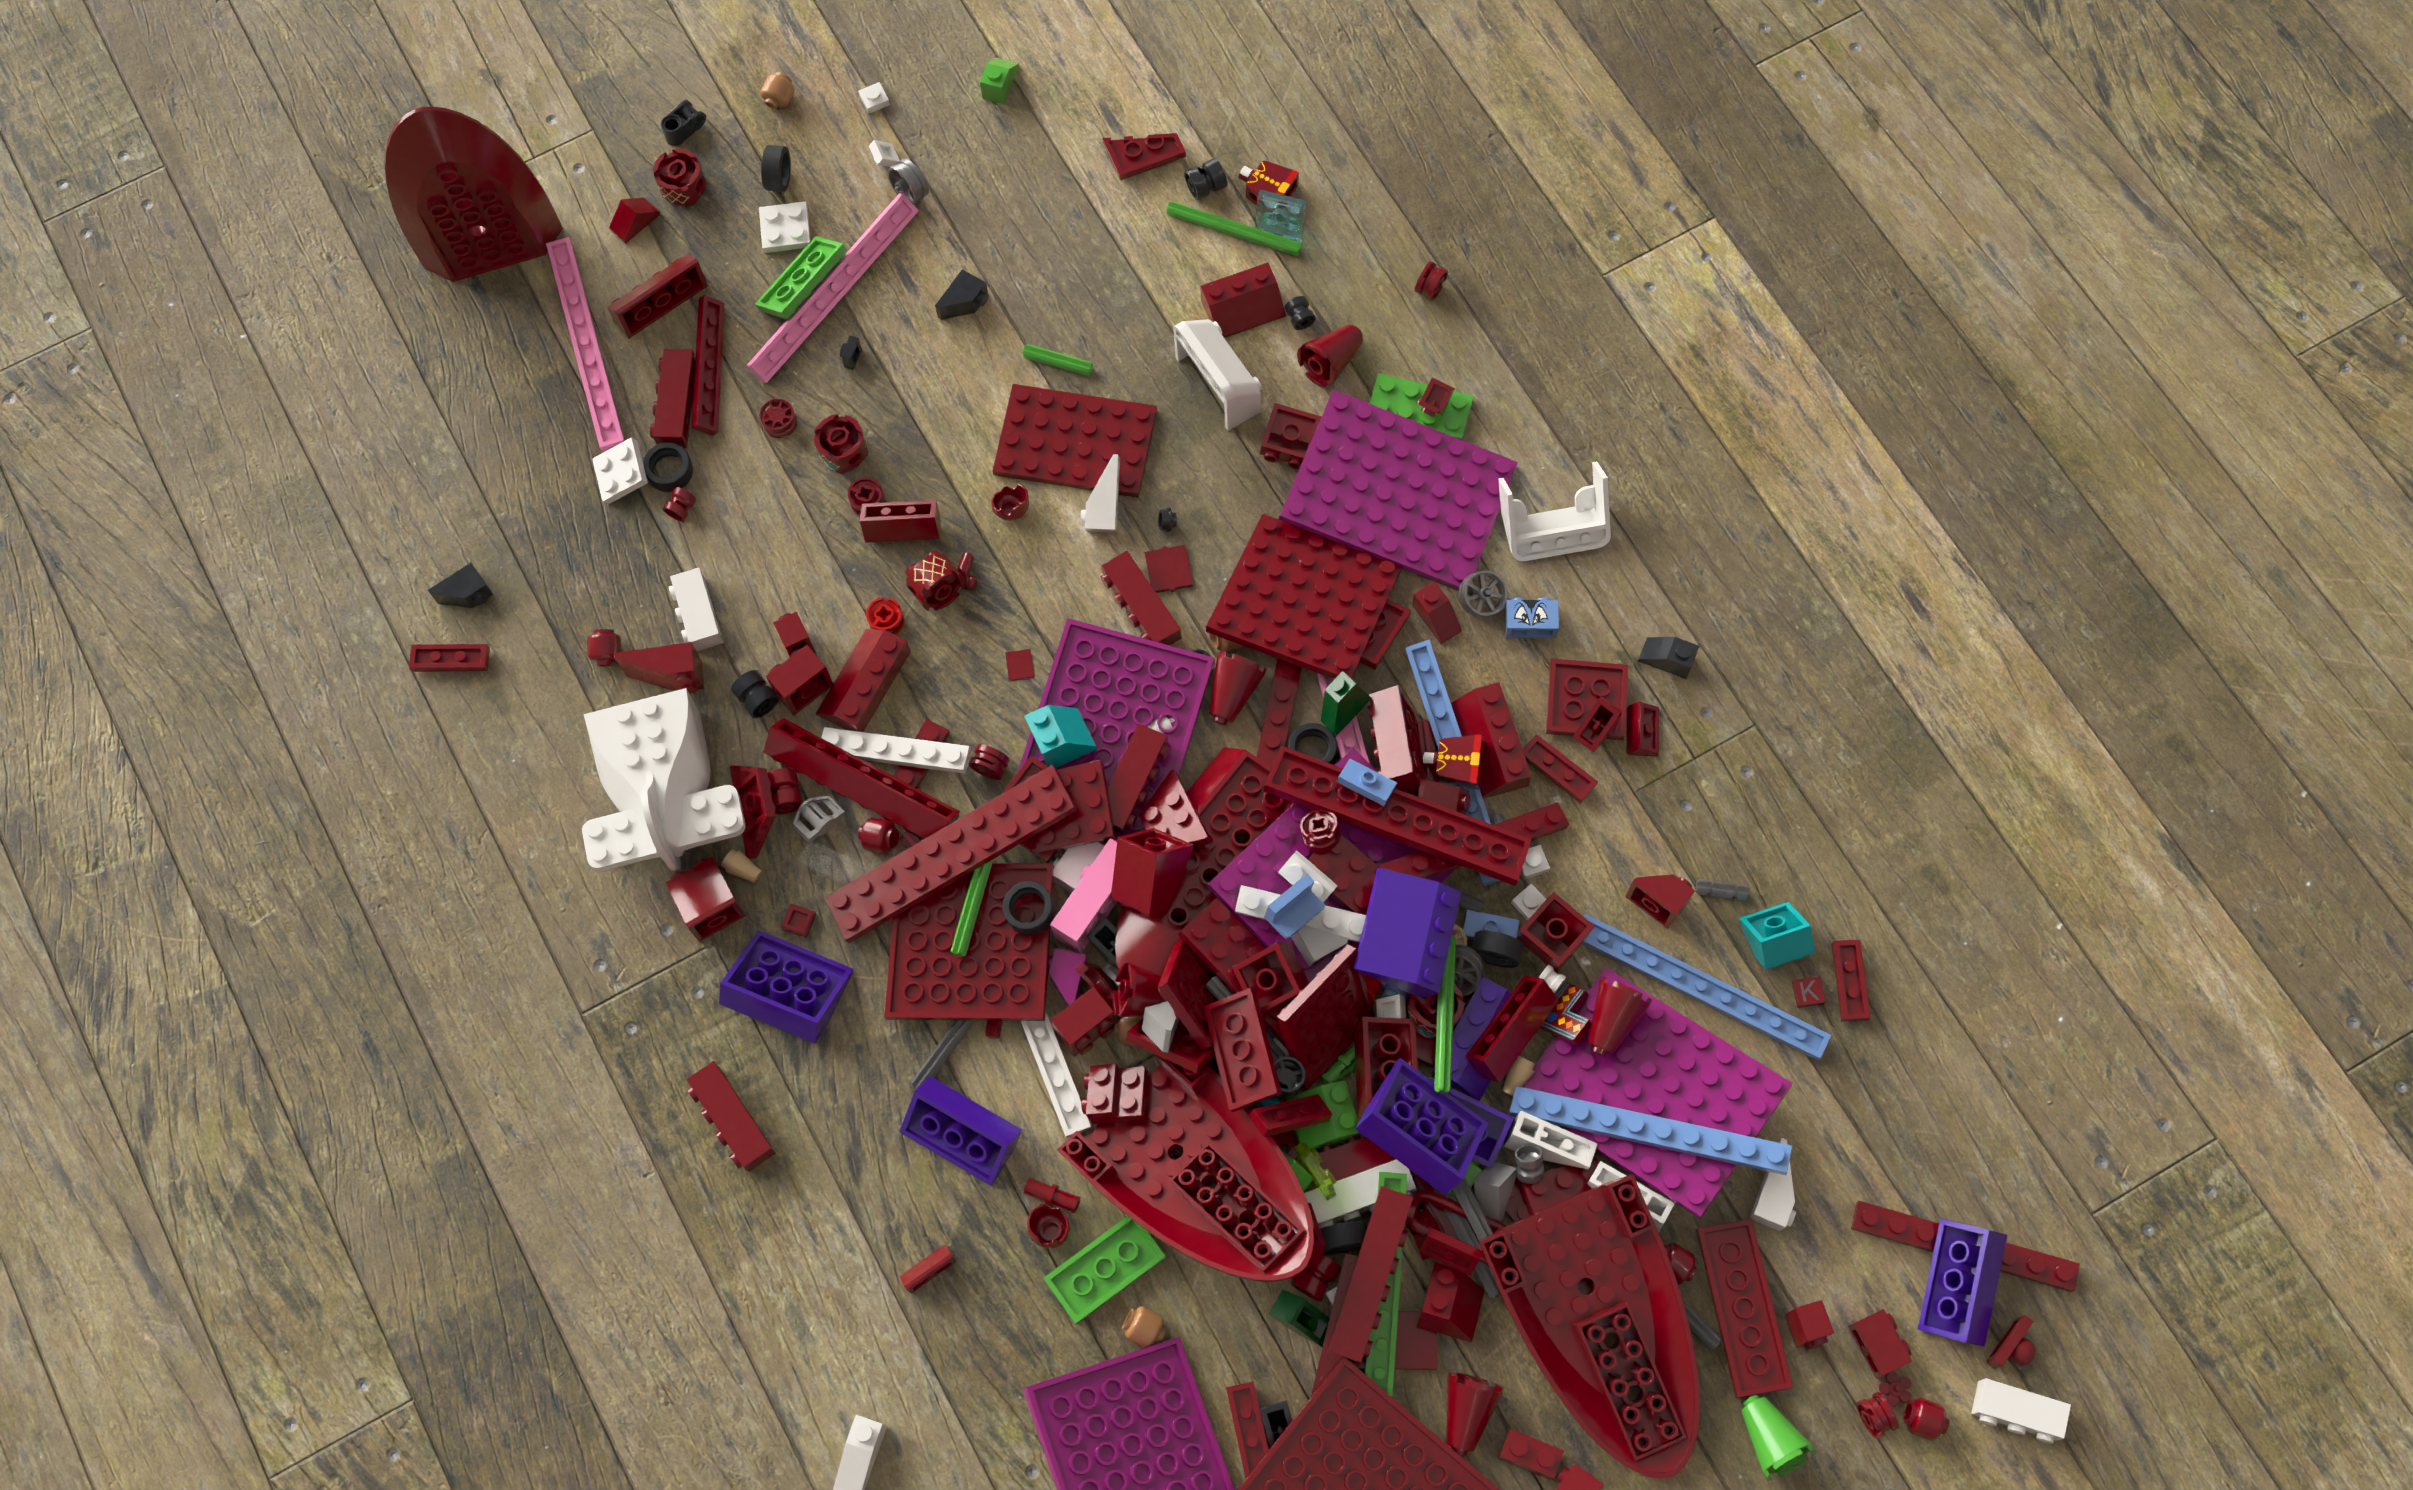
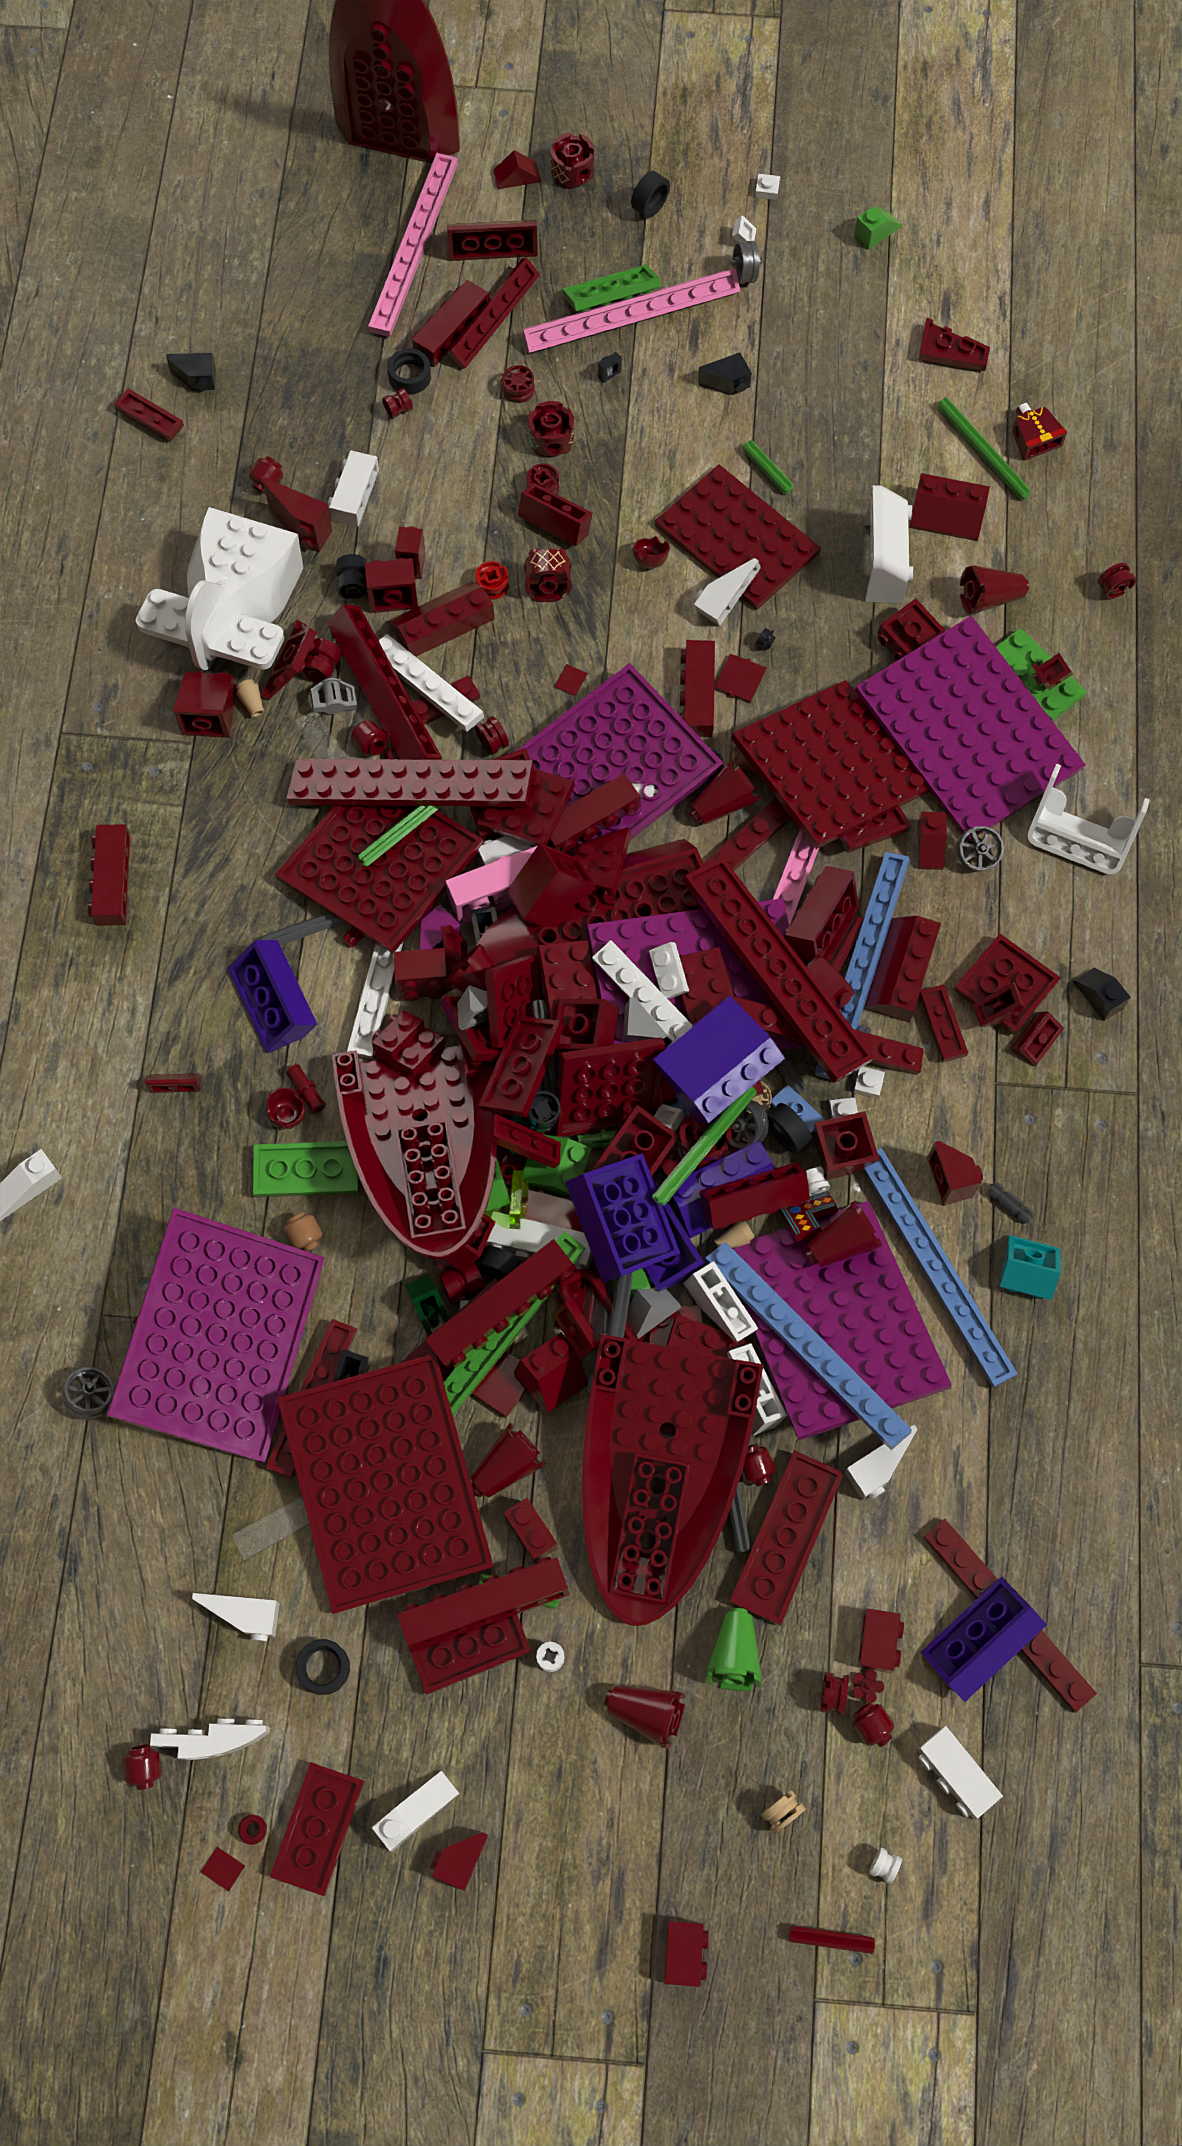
camera: 30 degrees right, 0 degrees up
(620, 470) = (370, 352): white plate -> none
(682, 123) = (602, 120): black piece -> none
(777, 90) = (694, 138): medium nougat head -> none
(784, 227) = (627, 244): white plate -> none
(785, 986) = (219, 805): dark purple slope -> none
(798, 920) = (265, 765): dark red tile -> none
(964, 569) = (577, 582): dark red arm -> none
(1016, 893) = (434, 843): black tyre -> none
(1060, 734) = (558, 744): teal slope -> none
(1204, 179) = (987, 395): black wheel -> none
(1280, 215) = (1027, 456): clear light blue plate -> none
(1294, 908) = (639, 981): medium blue panel -> none
(1300, 313) = (989, 543): black wheel -> none
(1319, 730) = (763, 868): black tyre -> none
(1320, 829) = (705, 938): dark red wheel -> none
(1342, 703) = (800, 858): dark green slope -> none
(1366, 782) = (770, 926): medium blue plate -> none
(1458, 760) = (863, 962): dark red torso -> none
(1529, 1162) = (691, 1306): flat silver wheel -> none
(1531, 618) = (1006, 892): medium blue brick -> none
(1808, 992) = (1024, 1329): dark red tile -> none
(1809, 1325) = (829, 1584): dark red piece -> none
(1850, 980) = (1066, 1342): dark red plate -> none
(2014, 1345) = (993, 1724): dark red tile -> none

